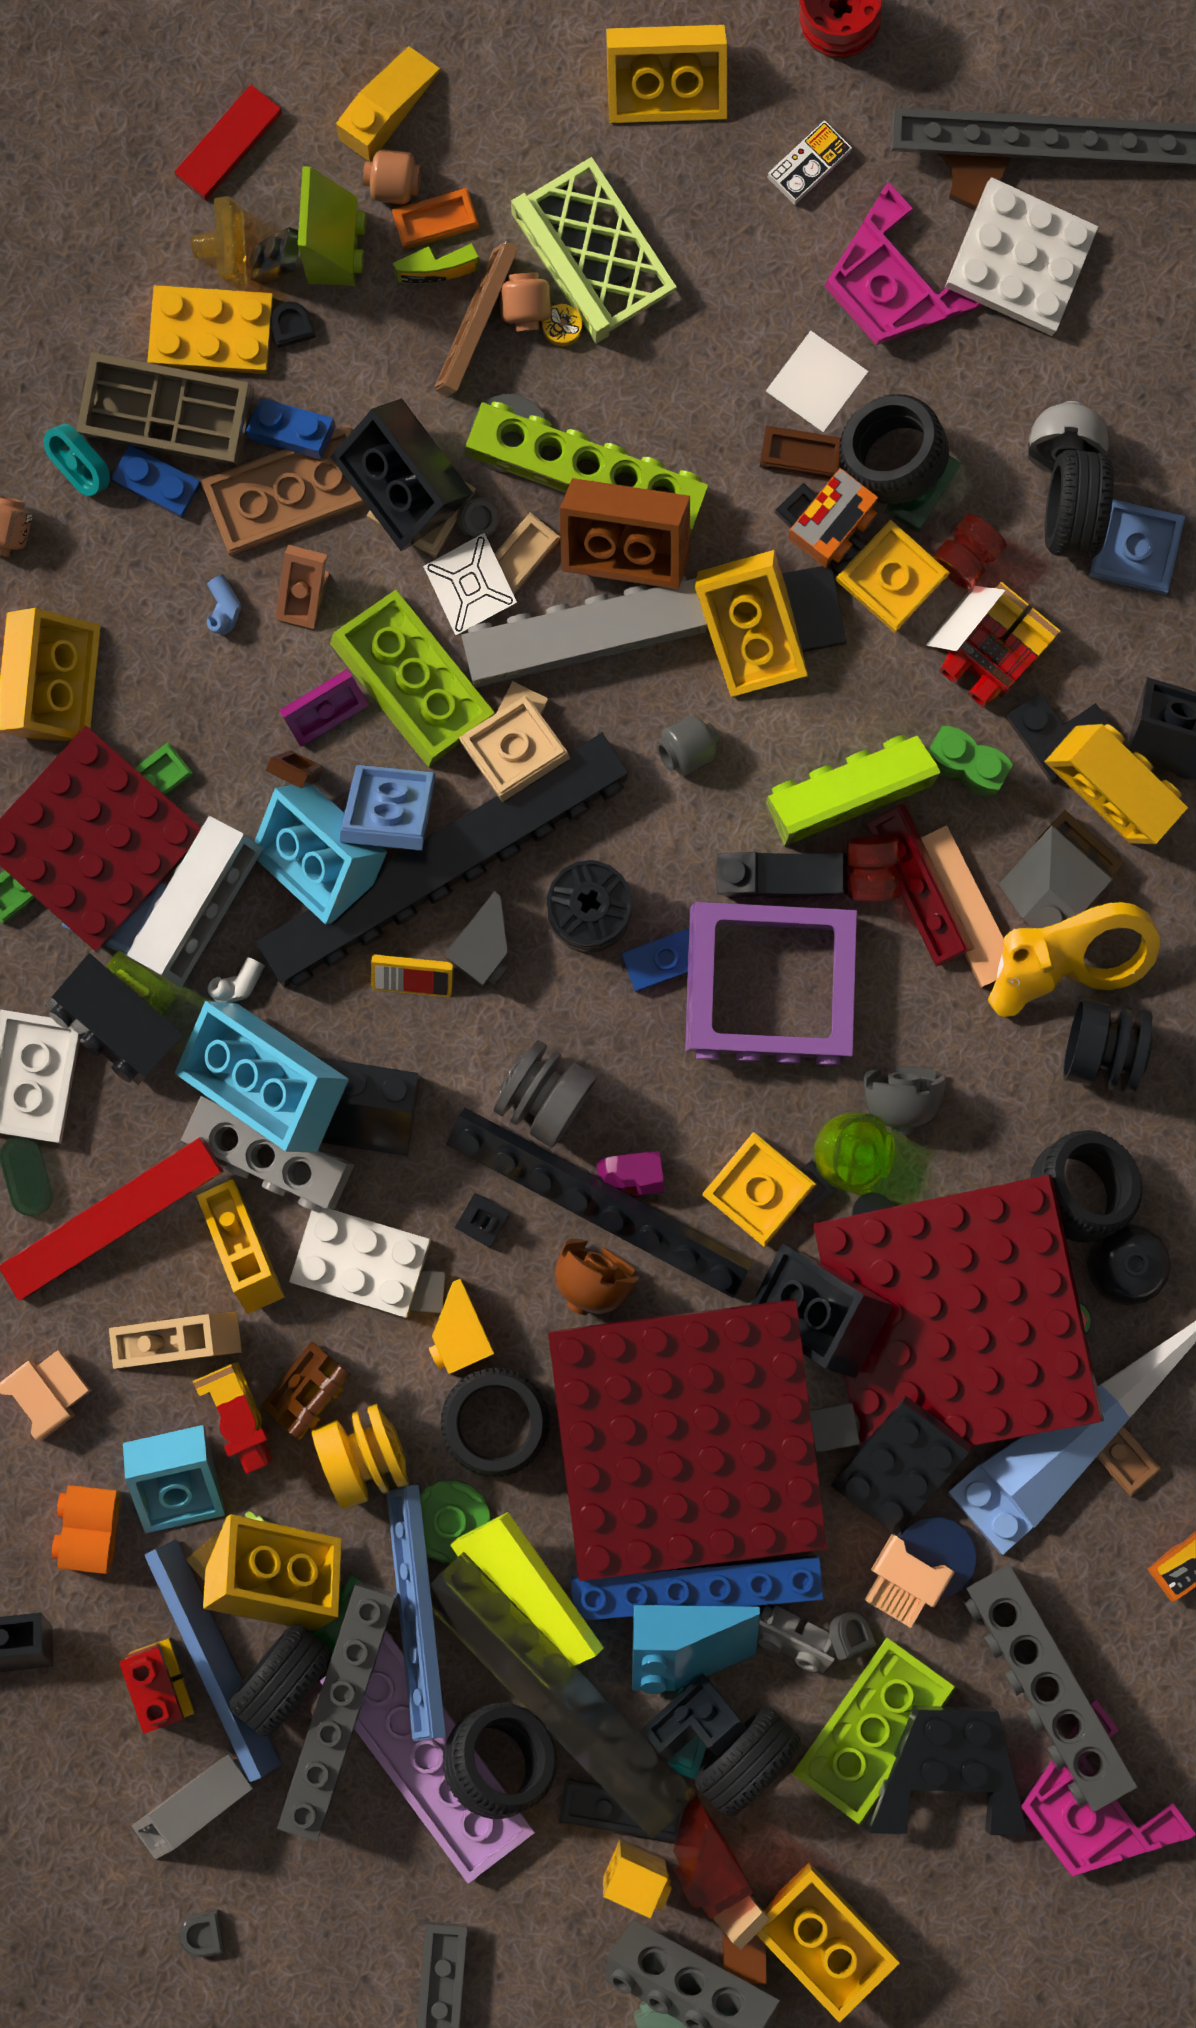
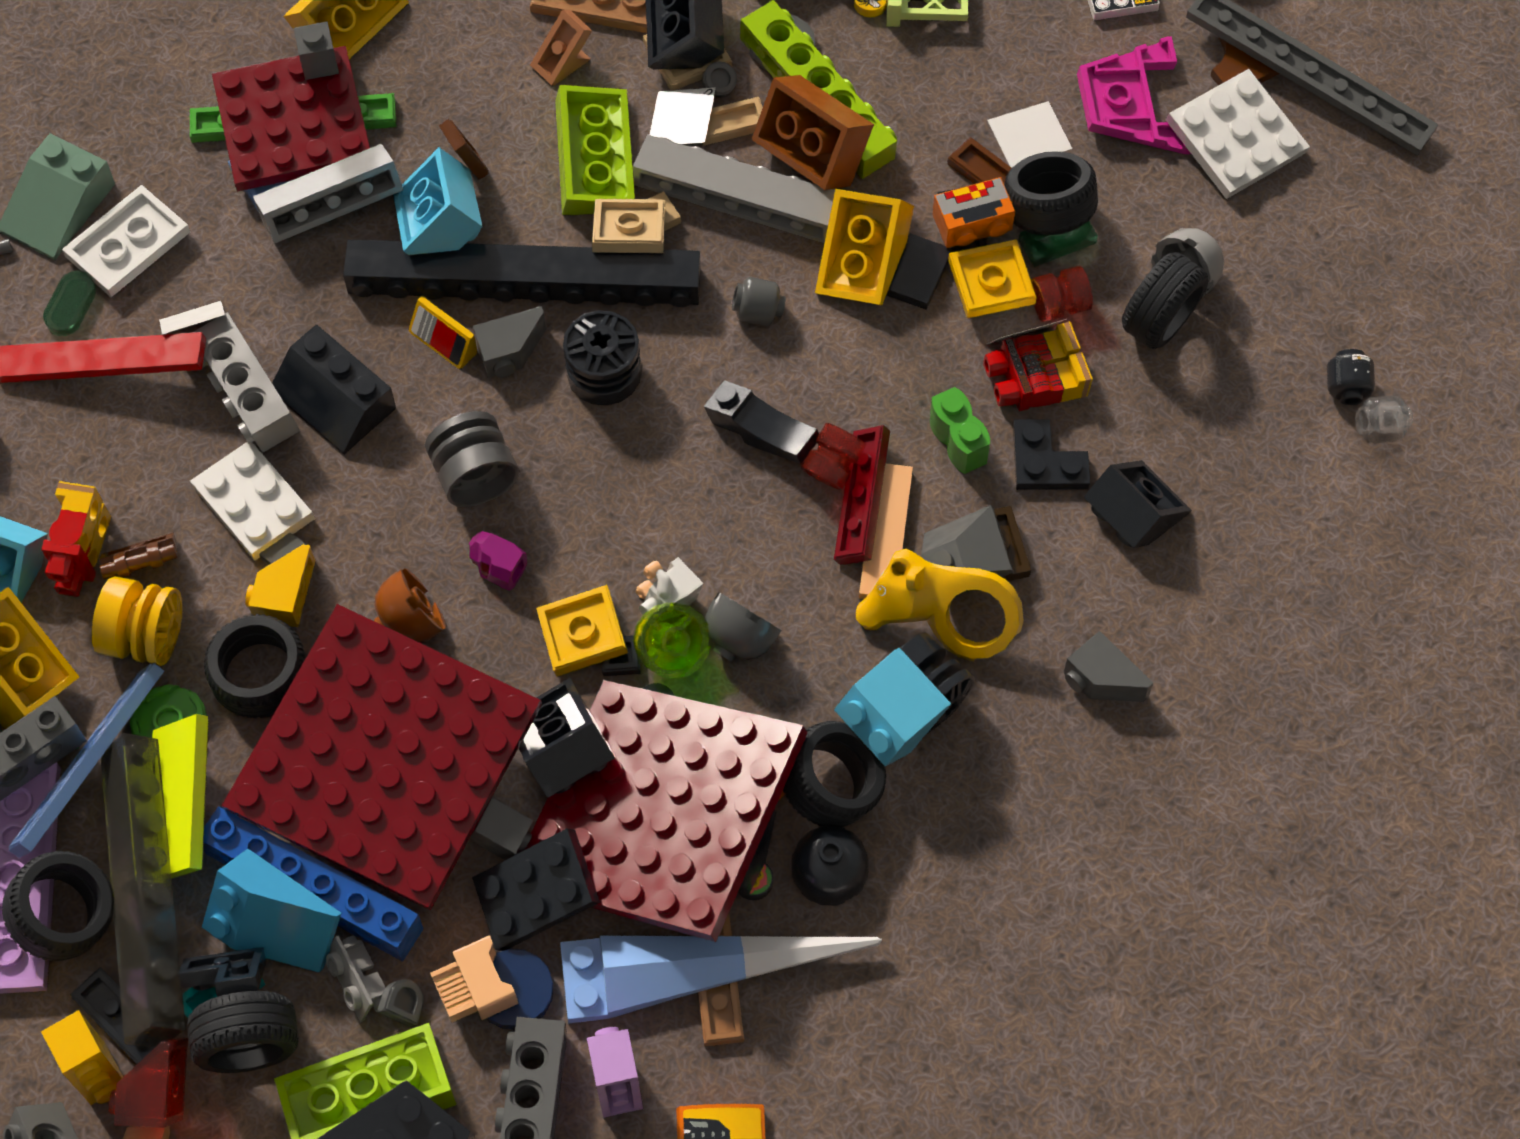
camera: 35 degrees right, 20 degrees down
(74, 760) = (316, 50): none -> dark grey brick
(113, 1020) = (207, 227): black slope -> none
(142, 982) = (245, 224): clear neon green piece -> none
(164, 1119) = (191, 317): none -> white sticker
(175, 1340) = (82, 465): tan slope -> none
(227, 606) = (495, 42): medium blue arm -> none
(236, 987) = (314, 271): white arm -> none
(240, 1247) = (173, 437): yellow slope -> none
(261, 1076) = (276, 317): medium azure brick -> none
(324, 707) = (517, 131): magenta plate -> none
(388, 807) = (508, 206): medium blue tile -> none
(482, 1220) = (361, 527): black tile -> none
(599, 1202) = (455, 565): black plate -> none
(658, 960) = (634, 434): blue plate -> none
(748, 1048) = (675, 542): medium lavender piece -> none
(813, 1102) = (675, 585): none -> white piece
(852, 789) = (854, 398): lime slope -> none
(1091, 1585) = (614, 1071): none -> lavender brick
(1107, 1098) = (892, 707): none -> medium azure slope
(1117, 783) = (1061, 499): yellow brick -> none
(1139, 548) = (1195, 368): medium blue tile -> none

